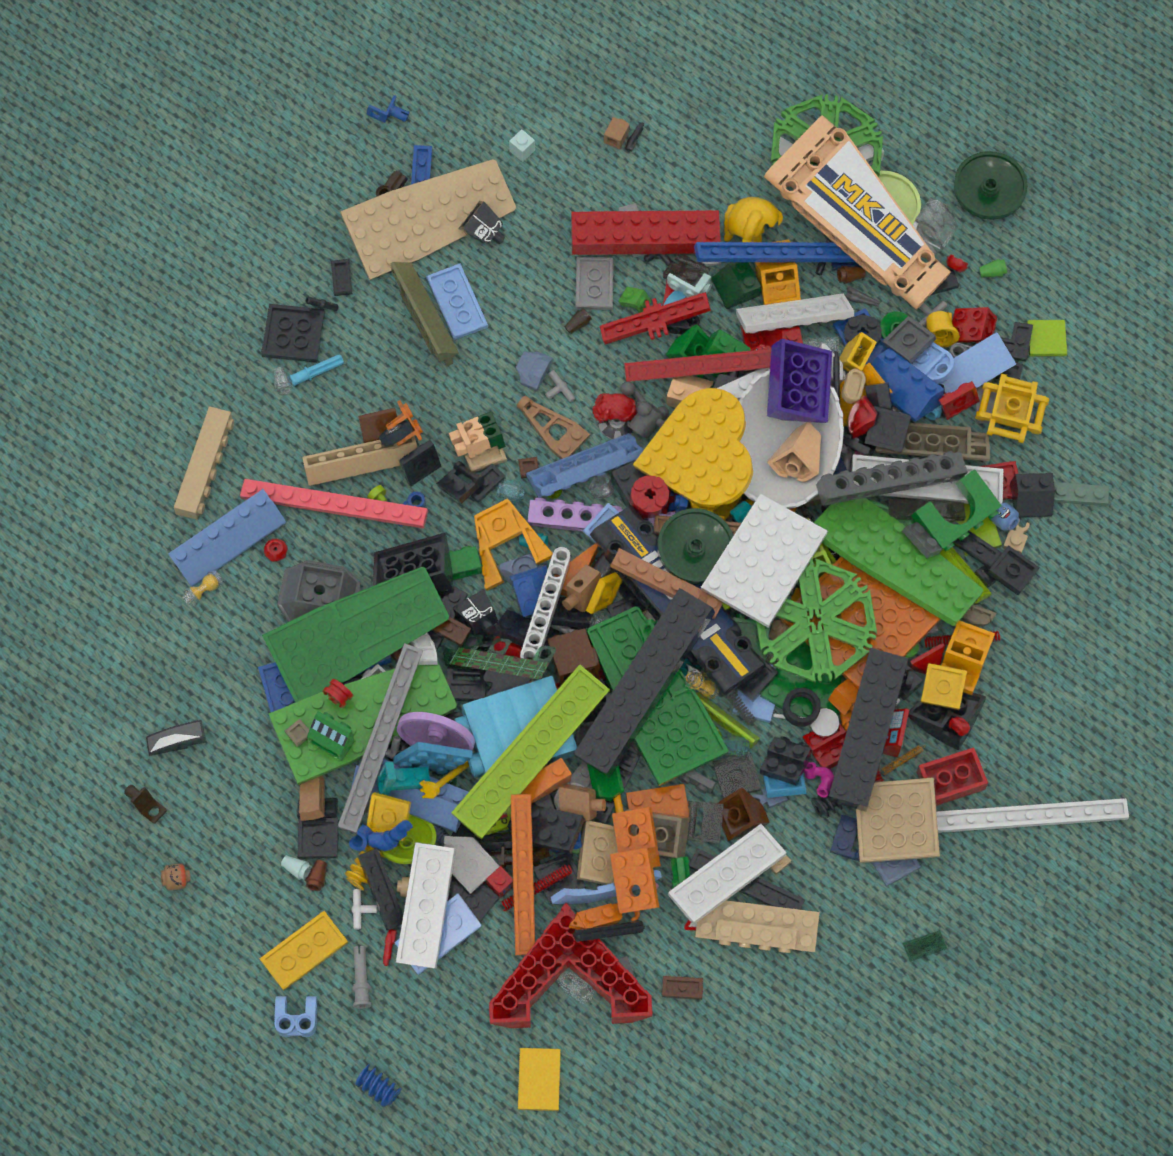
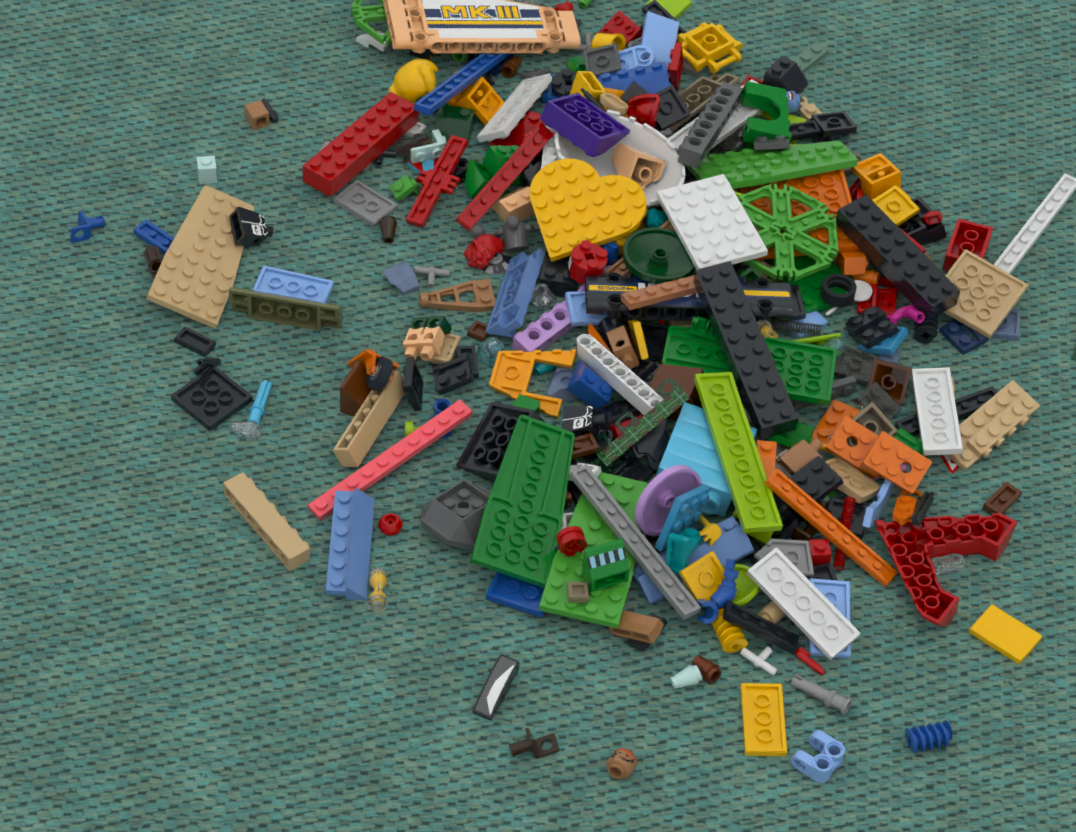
camera: 55 degrees left, 20 degrees down
(318, 838) = (673, 648): black plate -> none

